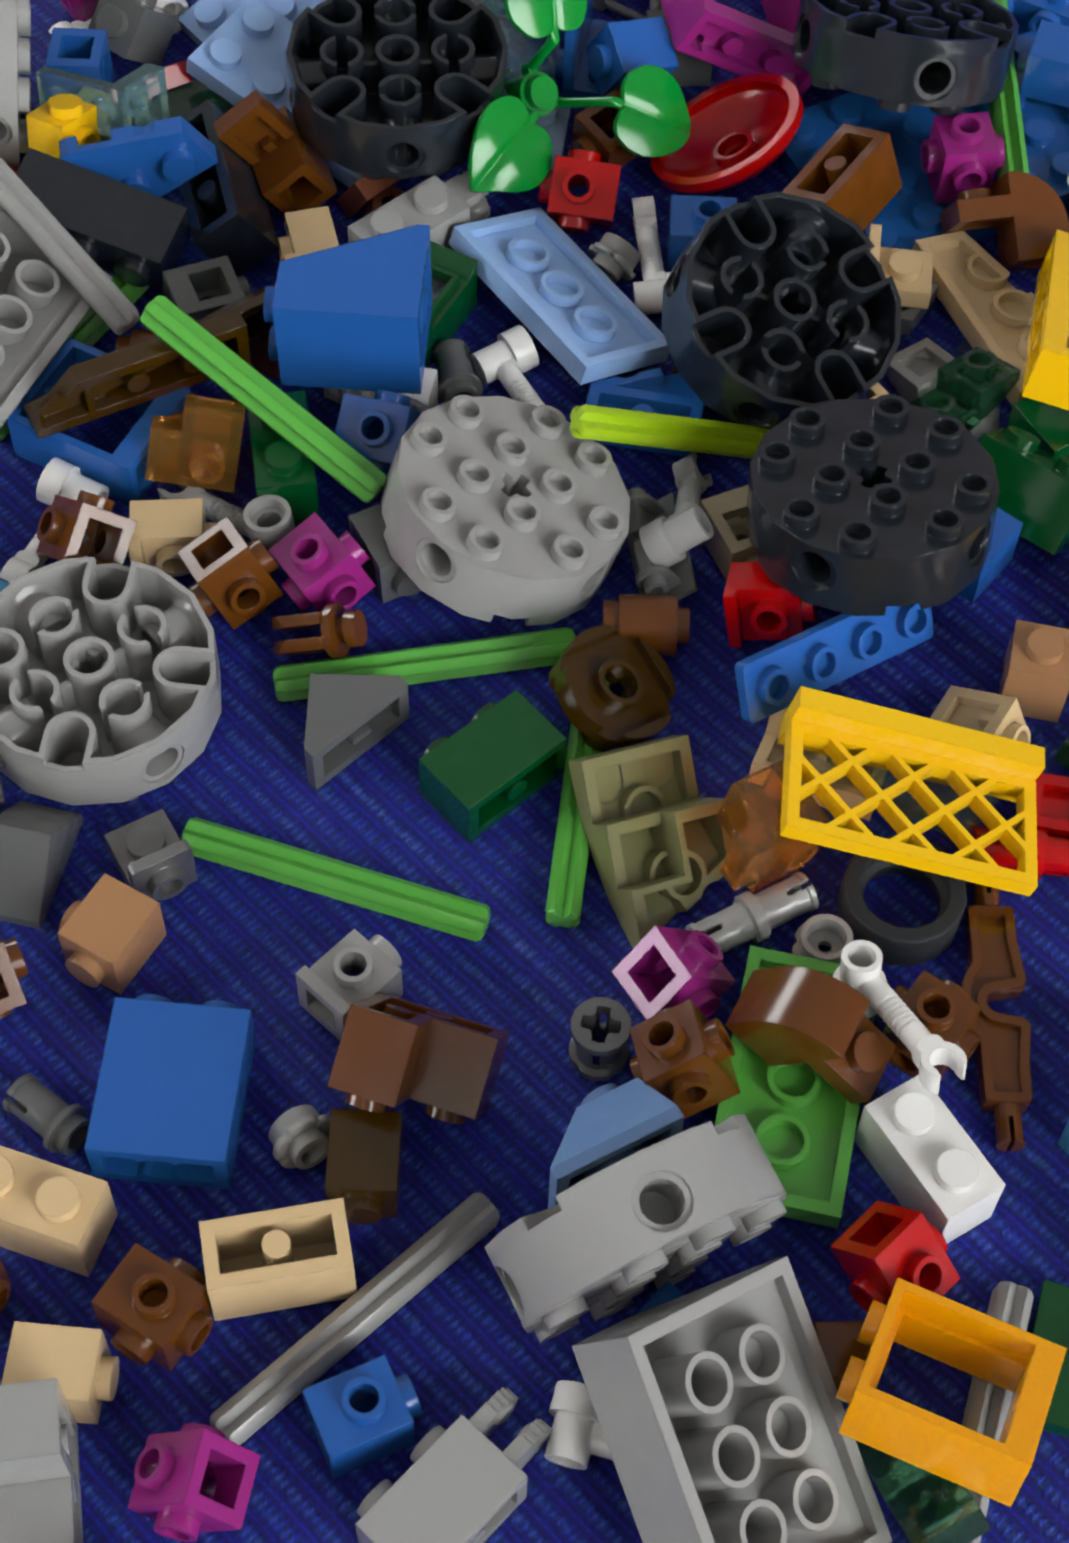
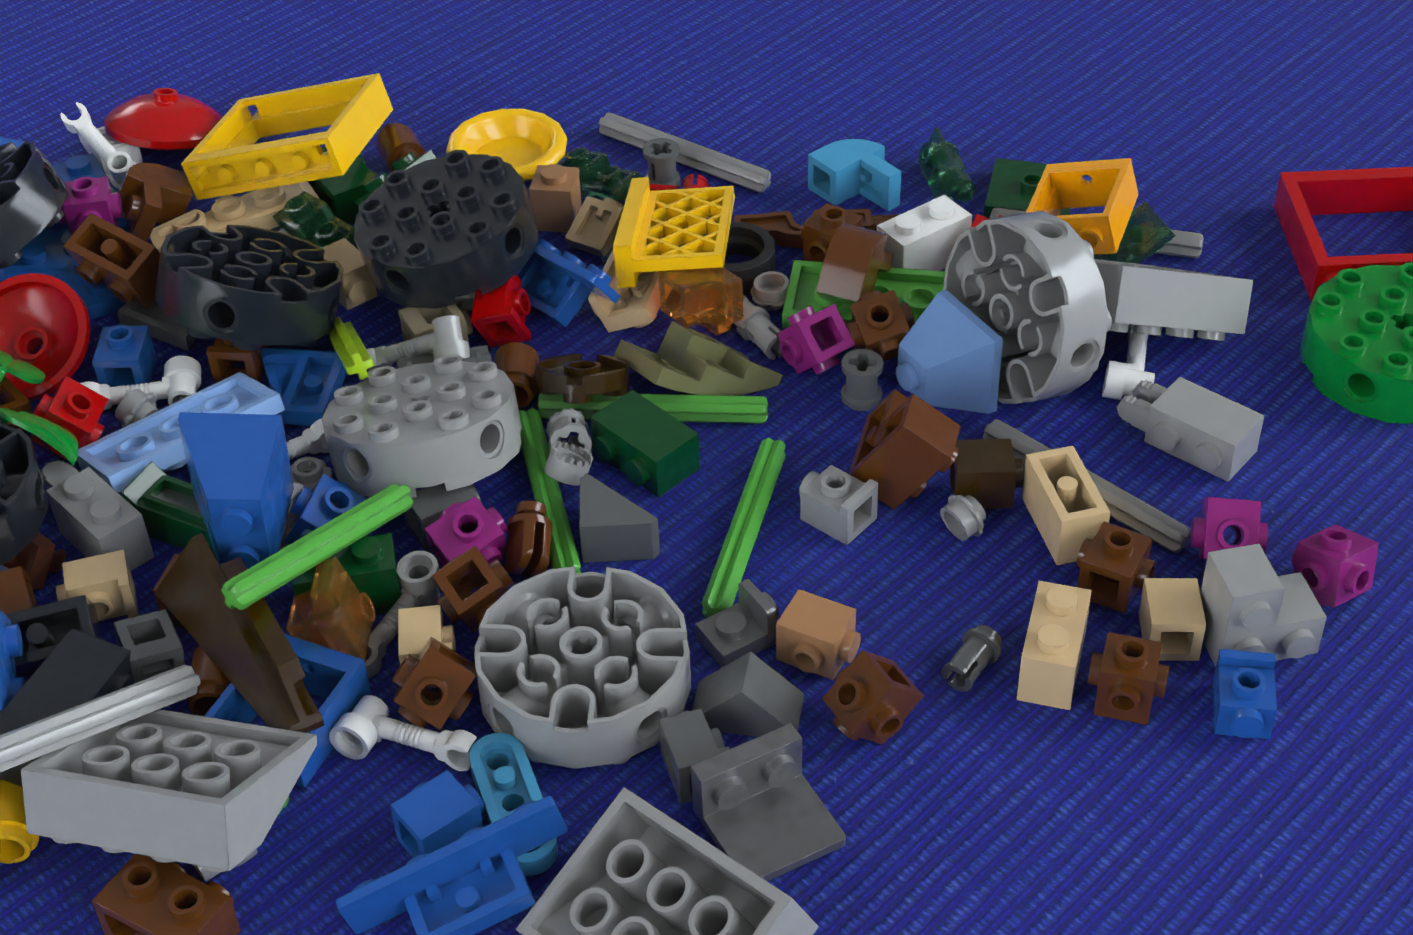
camera: 90 degrees left, 15 degrees down
(171, 1092) = (941, 583): blue brick -> none
(362, 1415) = (1156, 468): blue brick -> none
(483, 675) = (568, 459): none -> light grey connector
(862, 970) = (815, 242): white brick -> none

